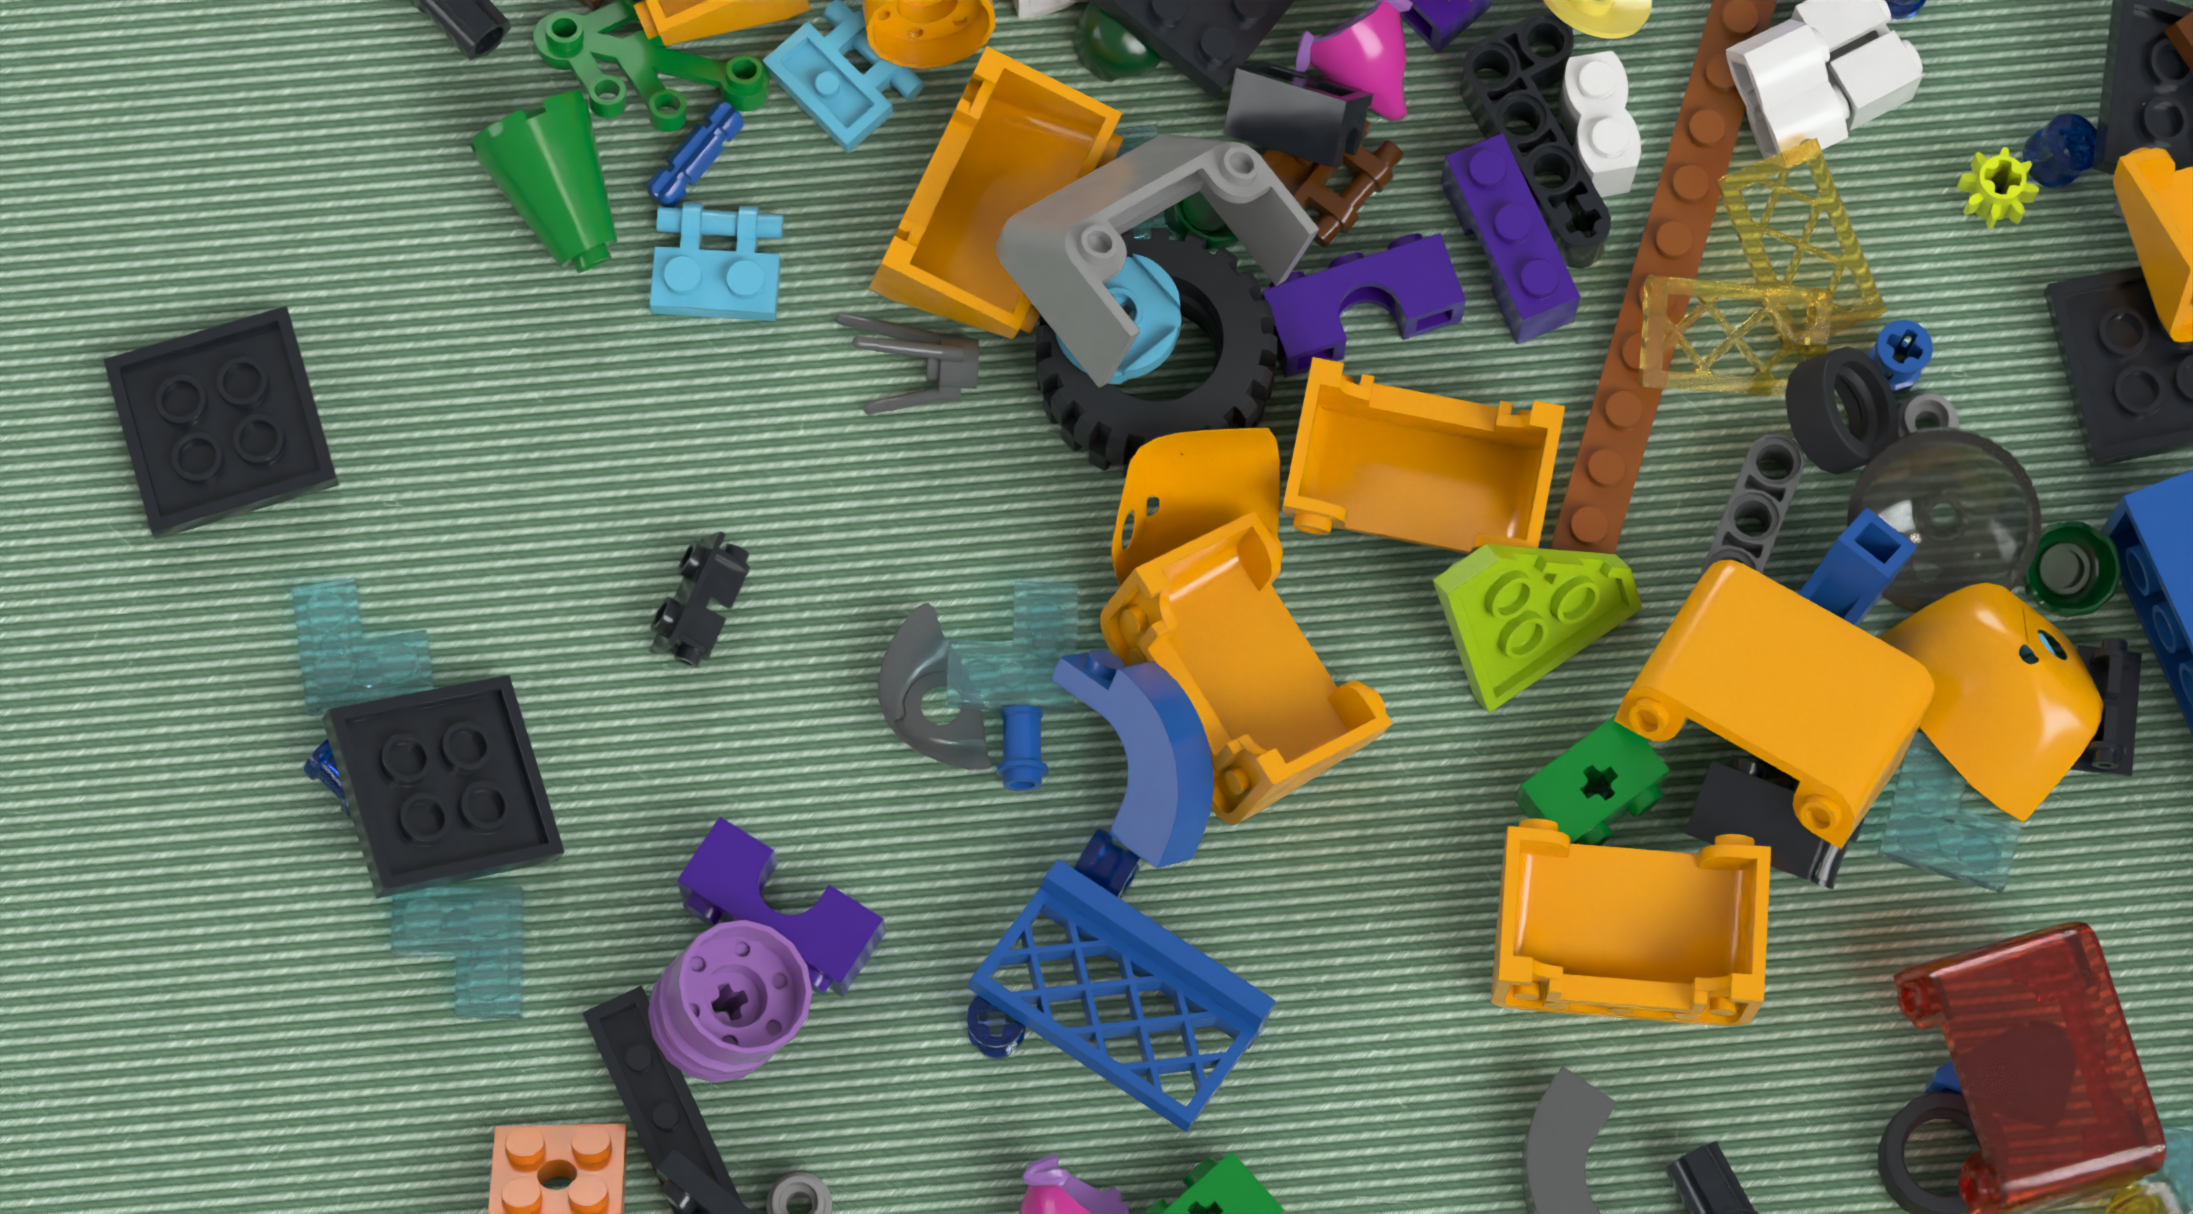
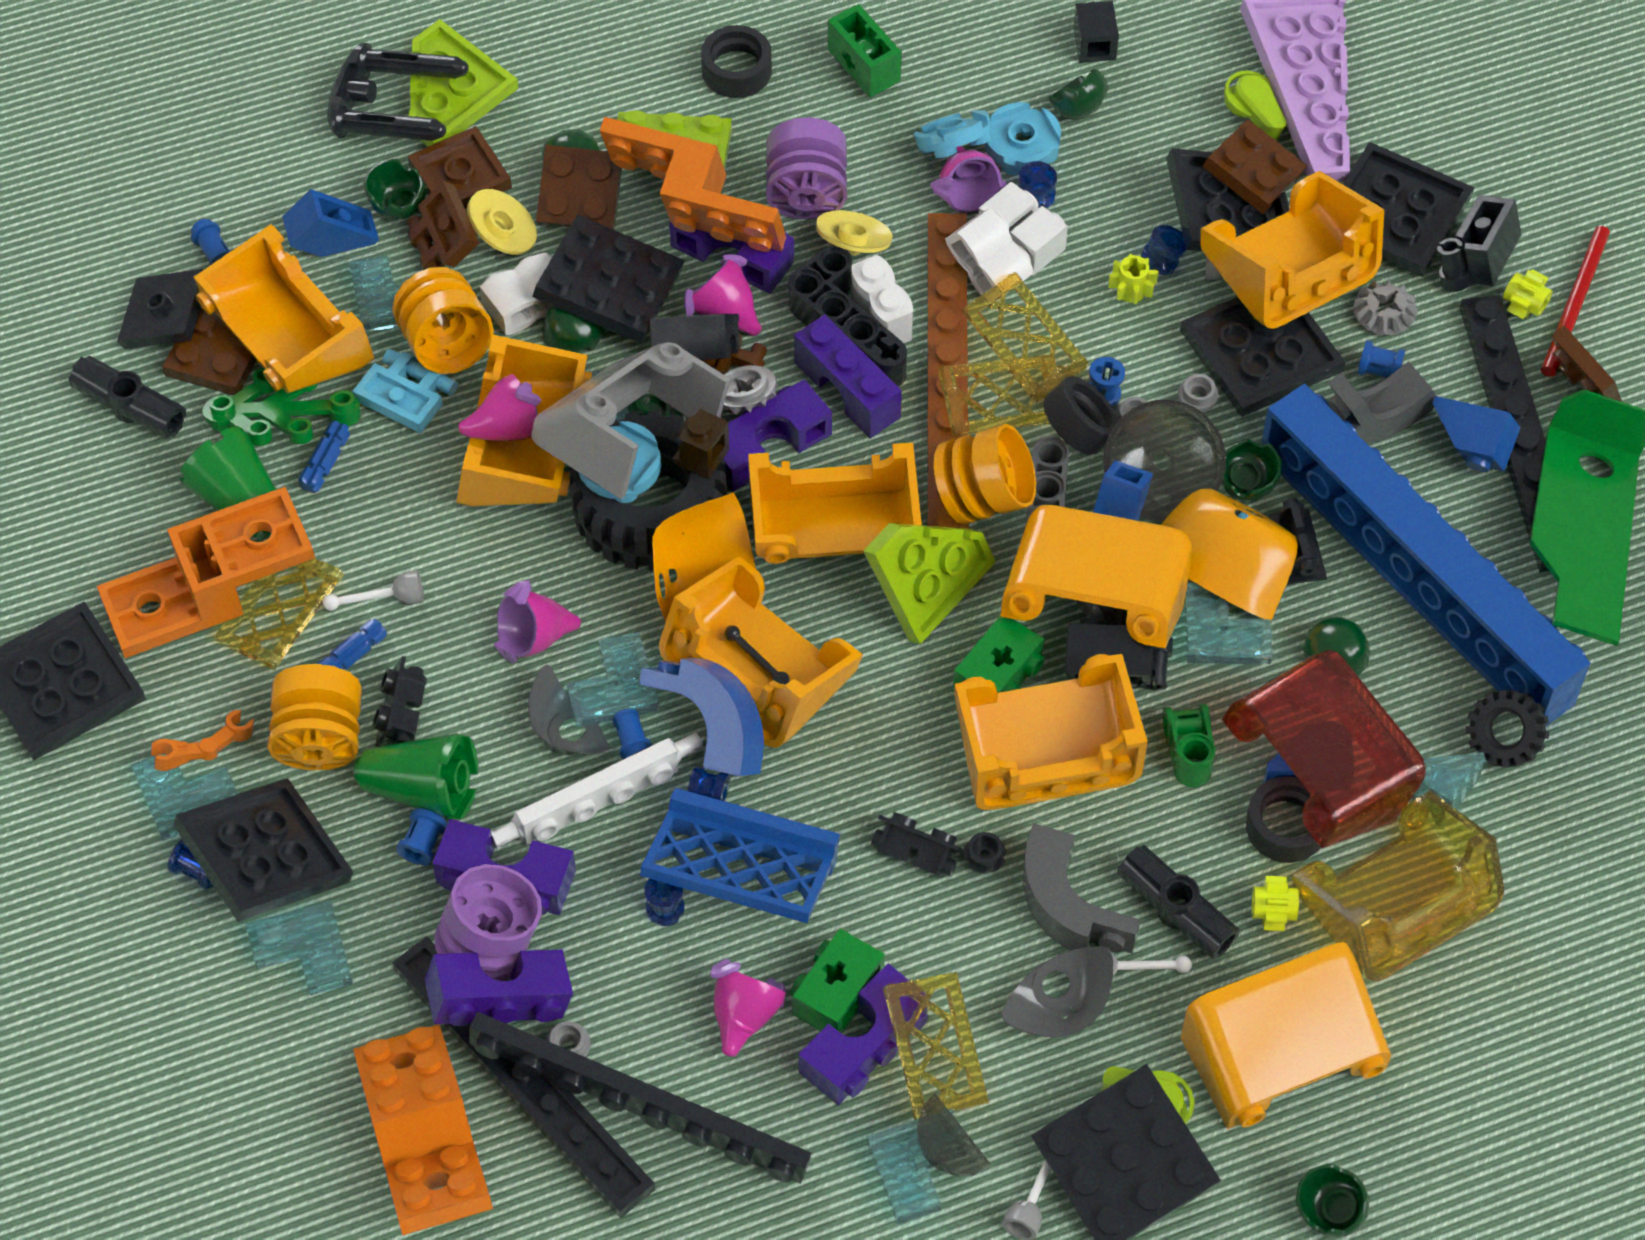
camera: 15 degrees left, 15 degrees down
(401, 597) = (207, 749): none -> orange piece
(470, 314) = (208, 565): none -> orange bracket
(562, 337) = (290, 633): none -> clear yellow window
(568, 597) = (314, 717): none -> light orange wheel
(651, 490) = (356, 645): none -> blue axle
(665, 1106) = (460, 988): none -> dark purple arch
(676, 823) = (421, 836): none -> blue bush
(701, 729) = (422, 773): none -> green cone
(716, 281) = (355, 524): medium azure plate -> none
(759, 410) = (406, 589): none -> hinge
(922, 832) = (586, 797): none -> white plate
(923, 527) = (530, 622): none -> hat
(949, 359) = (518, 529): dark grey plant -> none
(972, 179) = (505, 413): none -> dark pink hat
(1246, 325) = (697, 439): none -> dark brown brick
(1264, 717) = (733, 633): none -> black hinge
(1359, 209) = (757, 384): none -> light grey gear
(1409, 1050) = (901, 836): none -> black hinge
(1485, 1063) = (981, 843): none -> black plate
(1661, 481) = (985, 474): none -> light orange wheel
(1840, 980) = (1188, 737): none -> green piece
(2040, 394) = (1201, 385): none -> light grey plate
(2110, 895) = (1342, 637): none -> dark green hair

